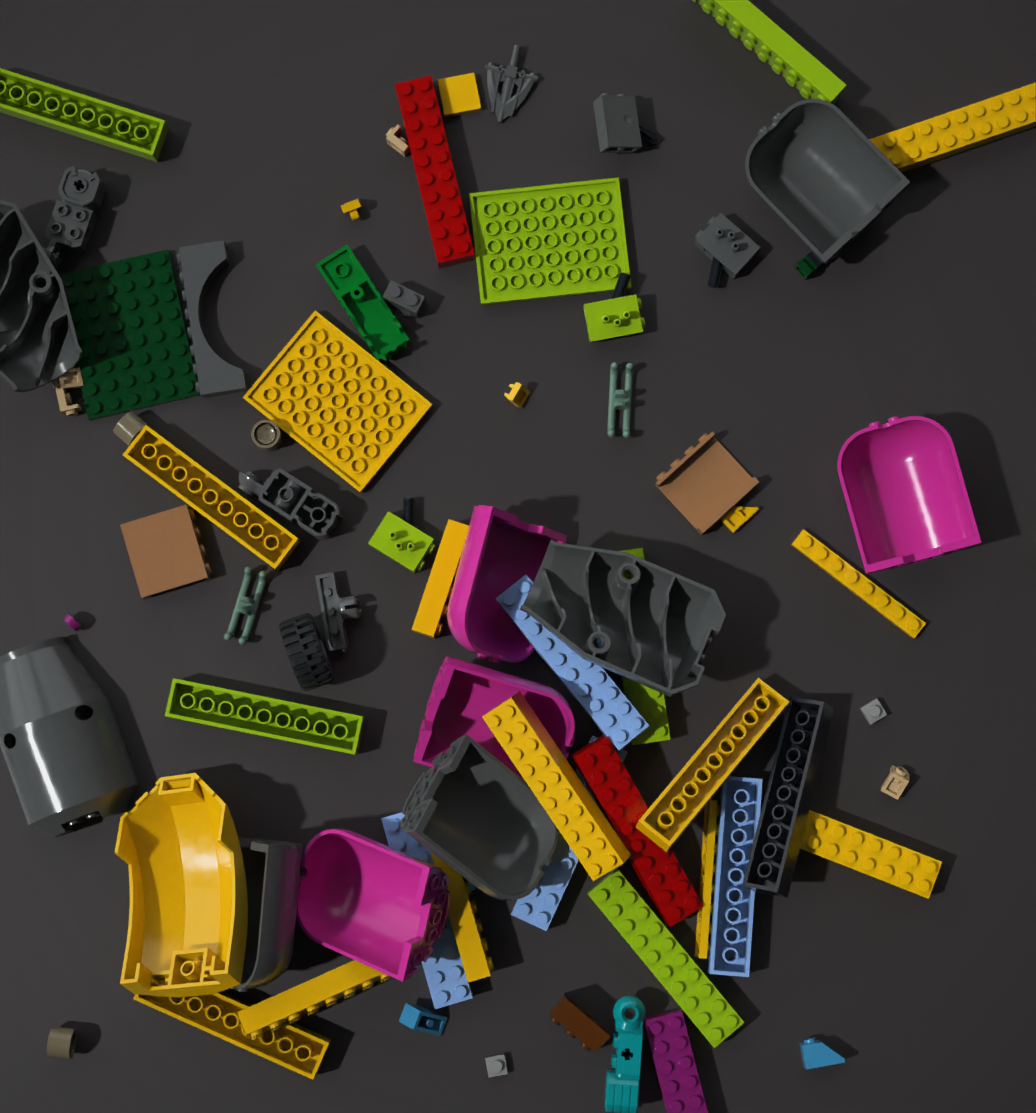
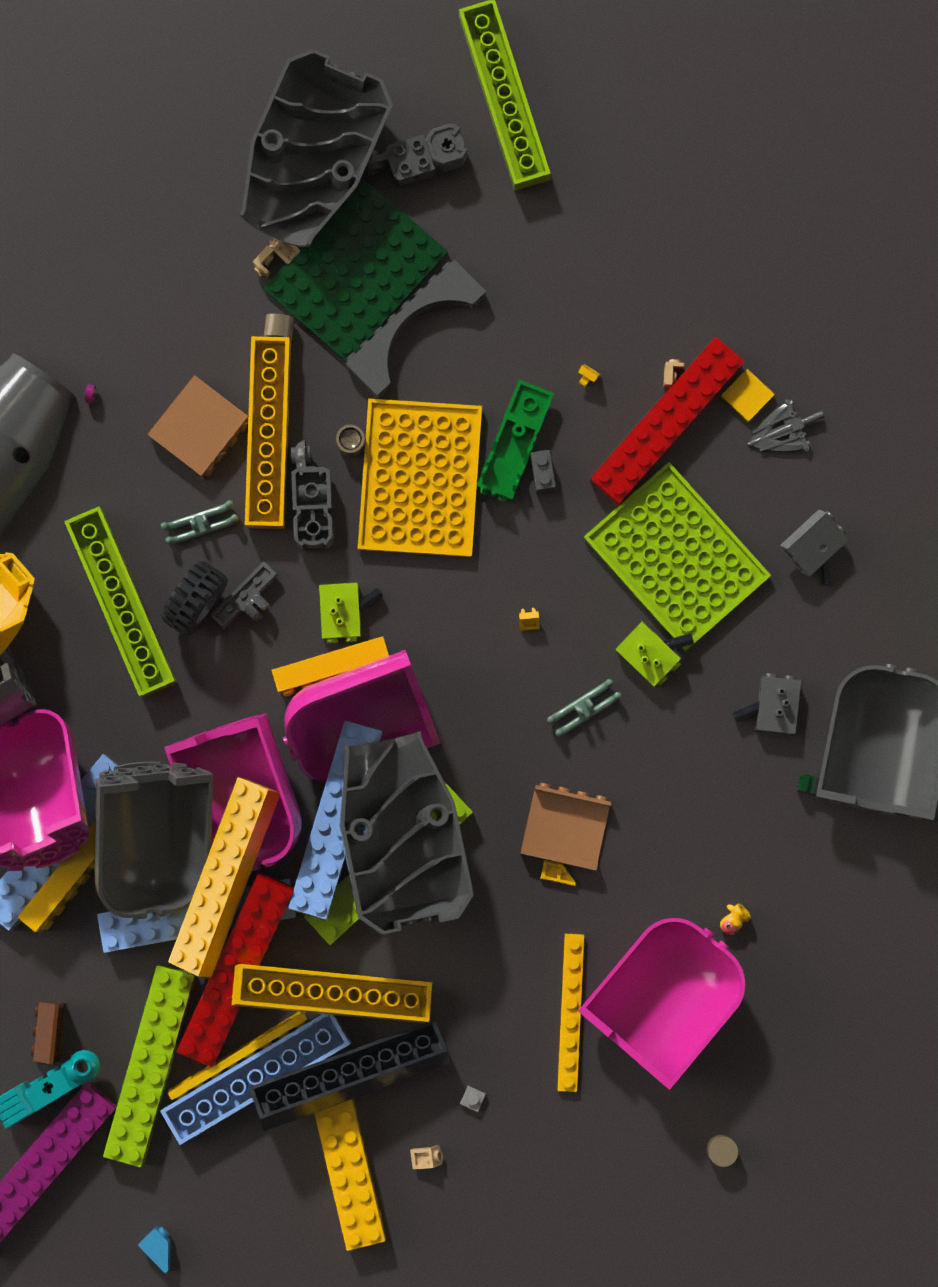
camera: 55 degrees right, 0 degrees up
(875, 401) = (734, 921): none -> animal

